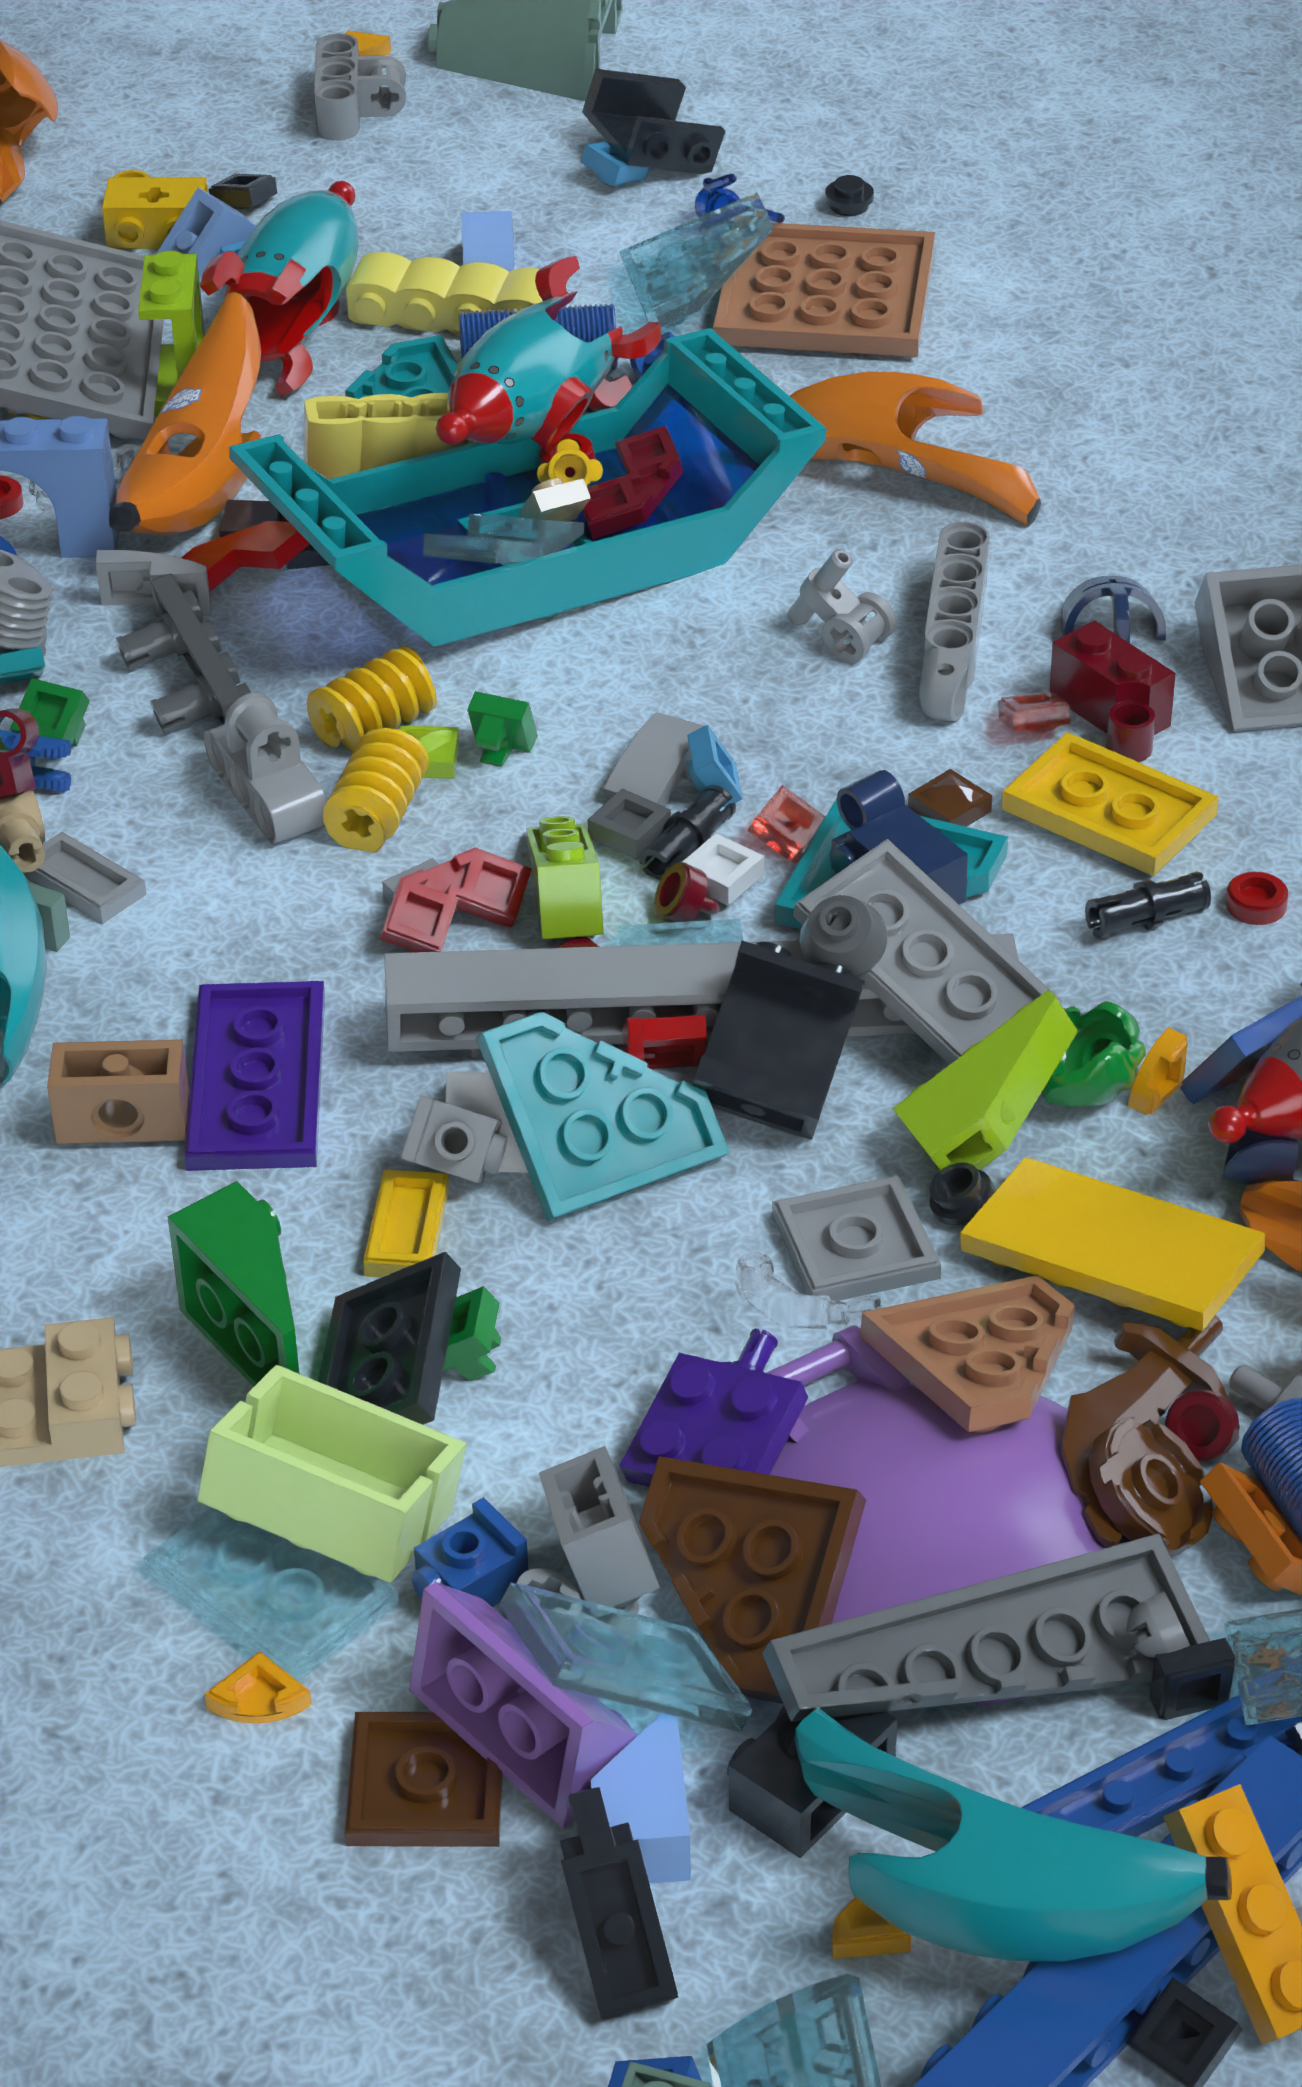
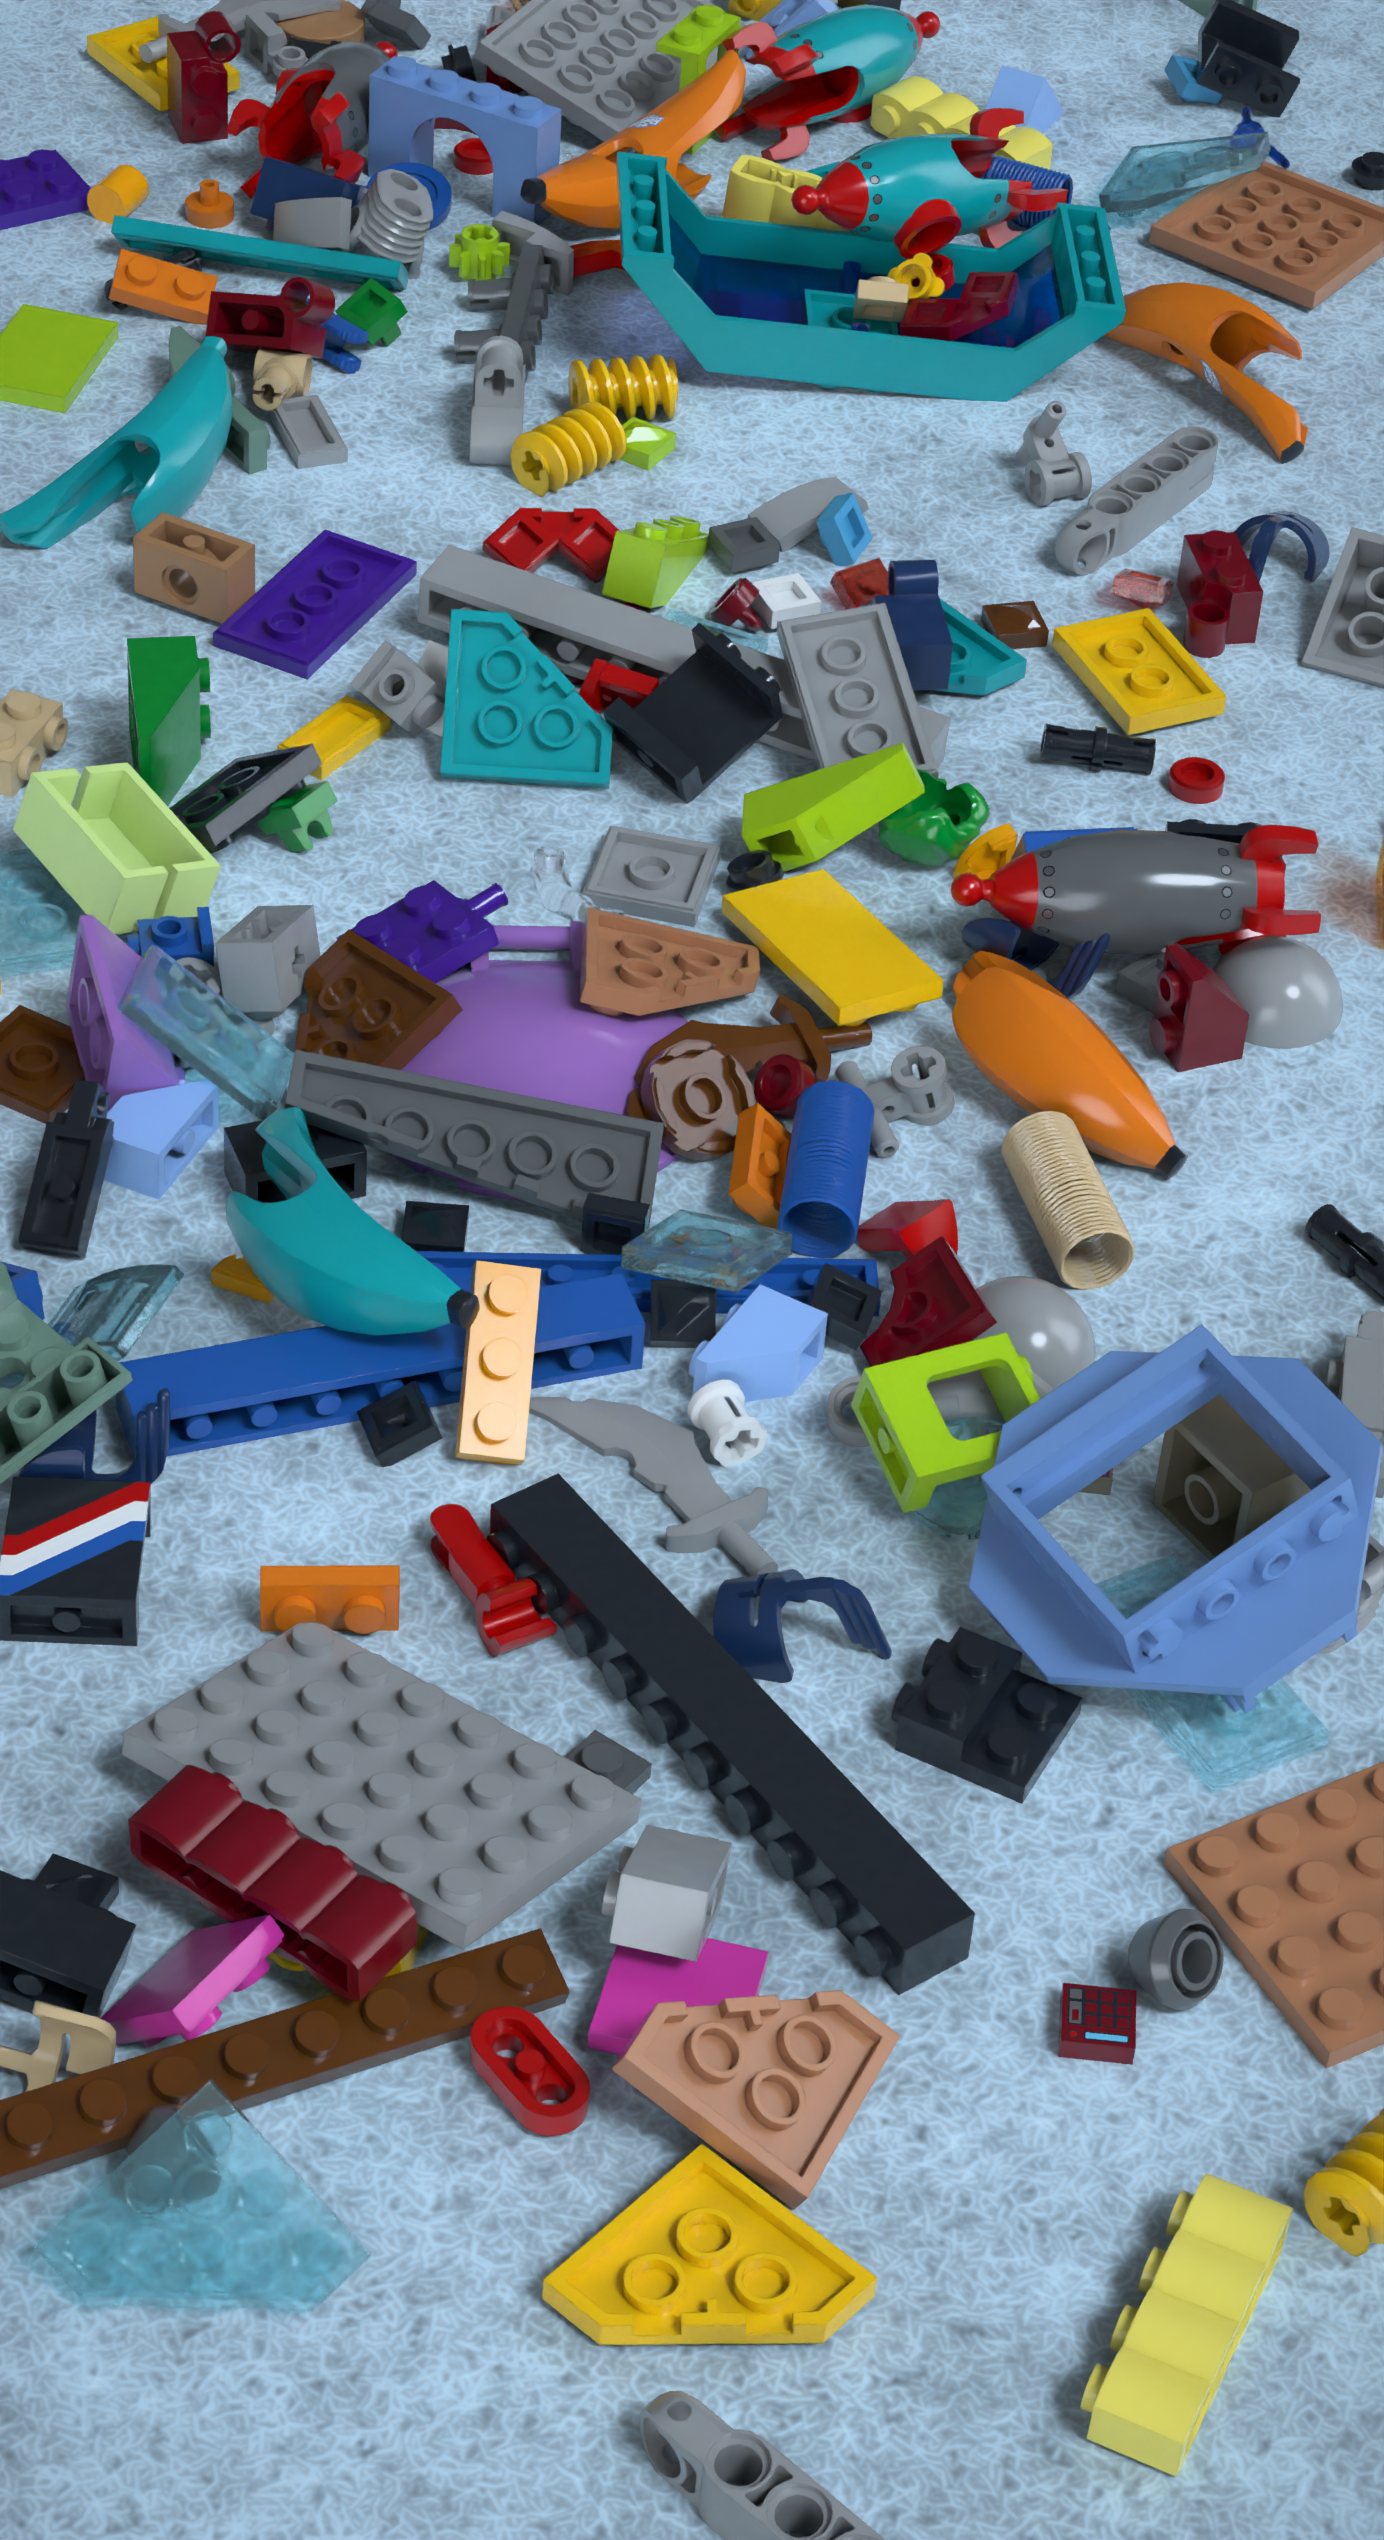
camera: 25 degrees right, 0 degrees up
(98, 605) = (479, 253): none -> lime gear
(501, 726) = (705, 444): green tile -> none
(503, 539) = (810, 307): clear light blue slope -> none
(687, 831) = (807, 561): black pin -> none
(844, 934) = (790, 652): dark grey cone -> none
(1008, 1768) = (435, 1226): none -> black tile
(1163, 1625) = (606, 1174): light grey hinge -> none

